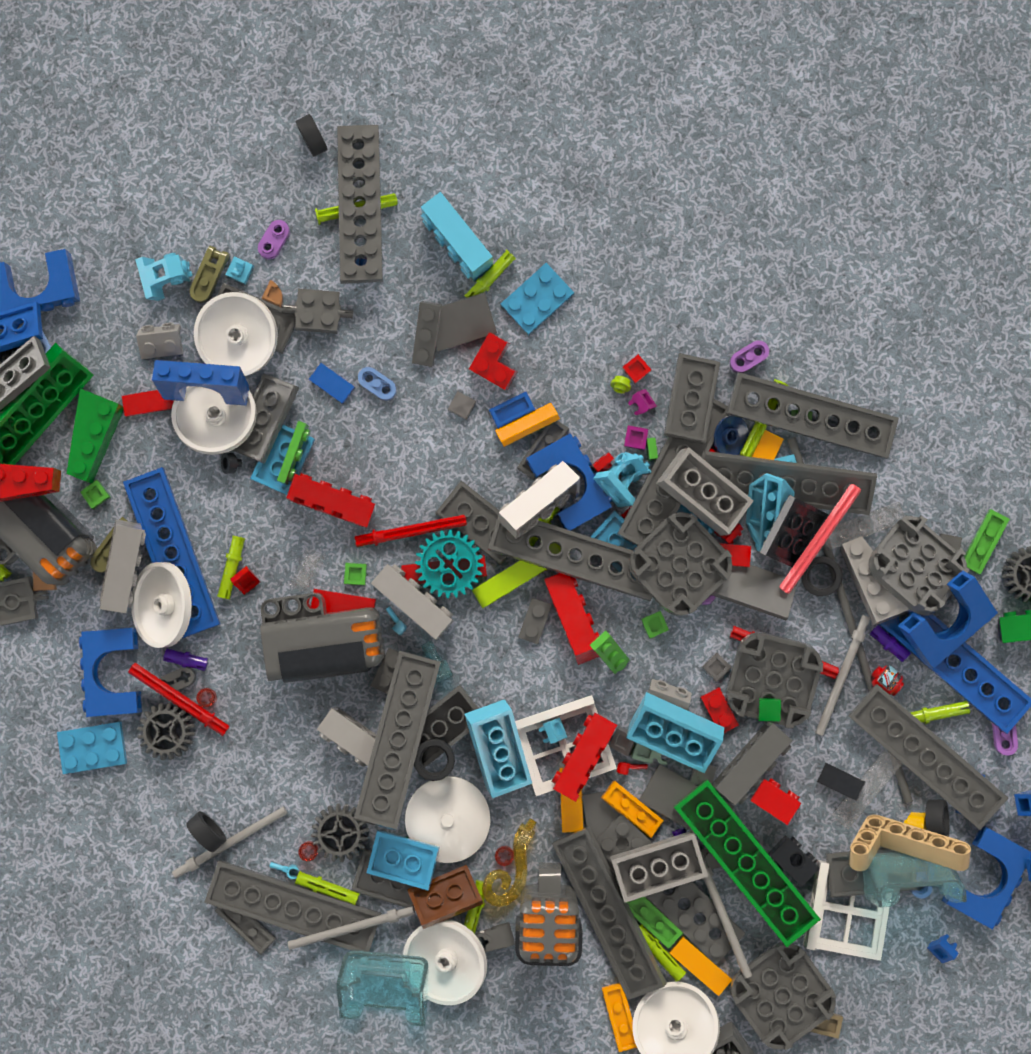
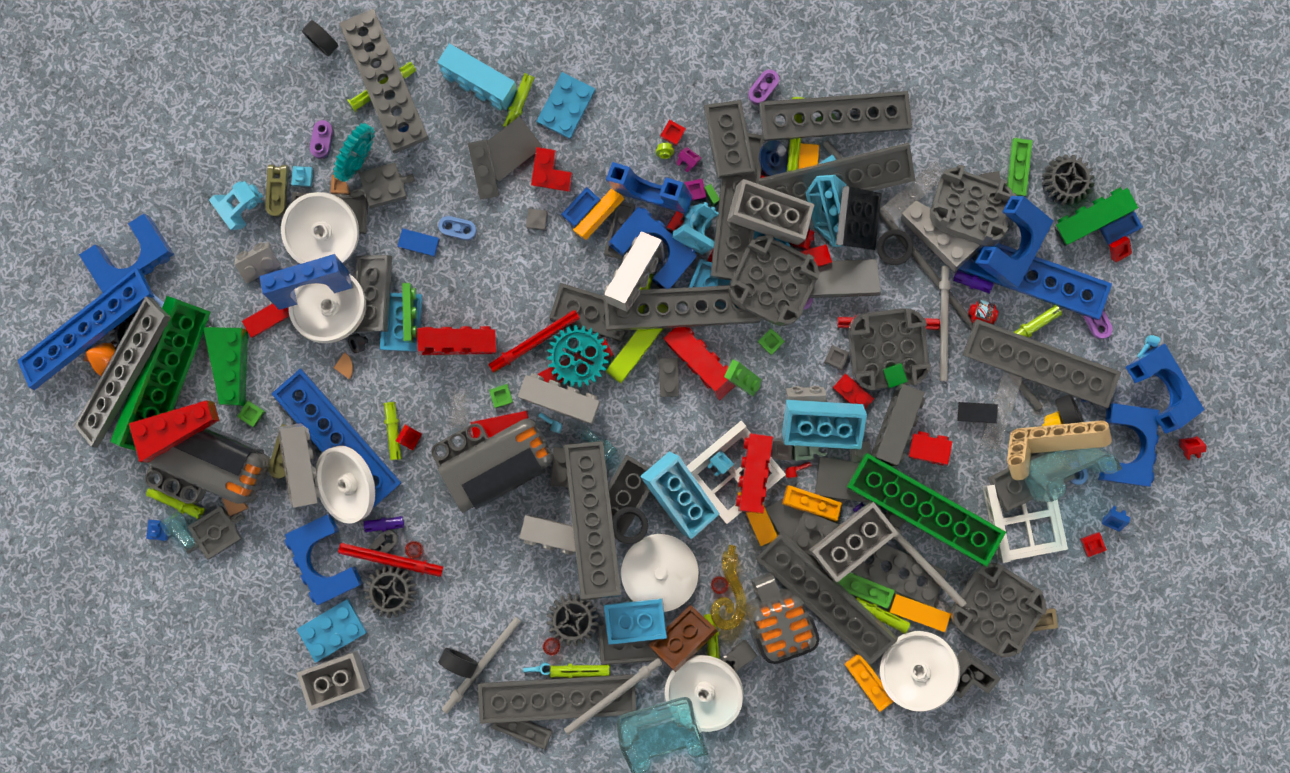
camera: 30 degrees left, 0 degrees up
(73, 799) = (333, 680): none -> light grey brick
(208, 481) = (345, 366): none -> medium nougat tile
(300, 267) = (359, 142): none -> teal gear
(604, 432) = (670, 195): none -> blue arch
(803, 869) = (975, 496): black brick -> none
(820, 538) = (882, 215): coral axle -> none
(909, 965) = (1093, 544): none -> red tile

